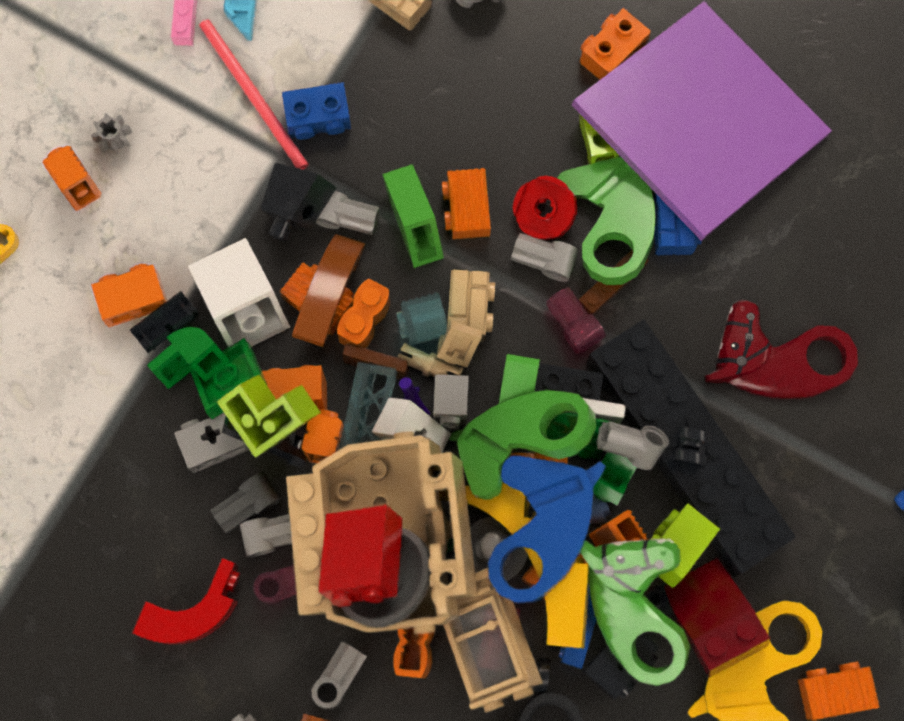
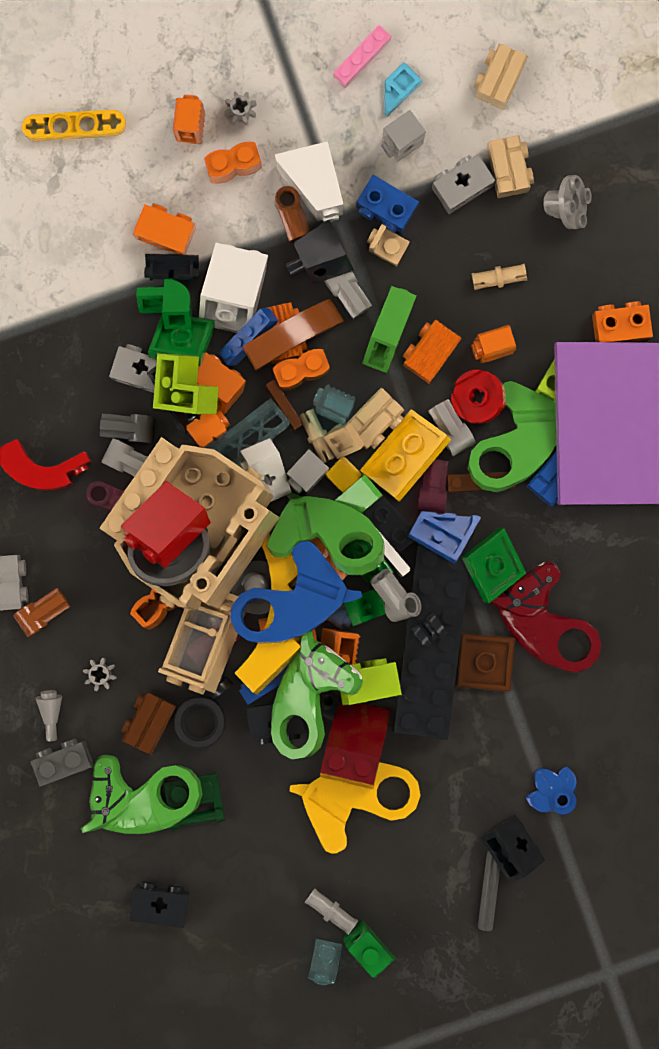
camera: 40 degrees right, 10 degrees up
(149, 178) = (239, 160): none -> orange brick
(230, 139) = (314, 178): none -> white slope
(238, 188) = (293, 215): none -> dark orange piece
(253, 95) = (356, 156): coral piece -> none
(280, 38) = (402, 136): none -> light grey brick
(289, 305) = (261, 322): none -> blue piece
(340, 673) = (98, 581): light grey piece -> none
(347, 146) = (387, 245): none -> tan bracket
(368, 56) = (478, 181): none -> light grey brick
(411, 393) = (287, 447): dark purple bar -> none
(471, 93) = (499, 276): none -> tan pin
(484, 379) = (343, 474): none -> yellow slope
(519, 149) = (494, 344): none -> orange brick
(526, 311) = (405, 455): none -> yellow plate
(625, 347) = (443, 533): none -> wing
(692, 343) = (493, 565): none -> green tile
(763, 438) = (485, 662): none -> reddish brown tile
(838, 692) = (391, 852): orange brick -> none

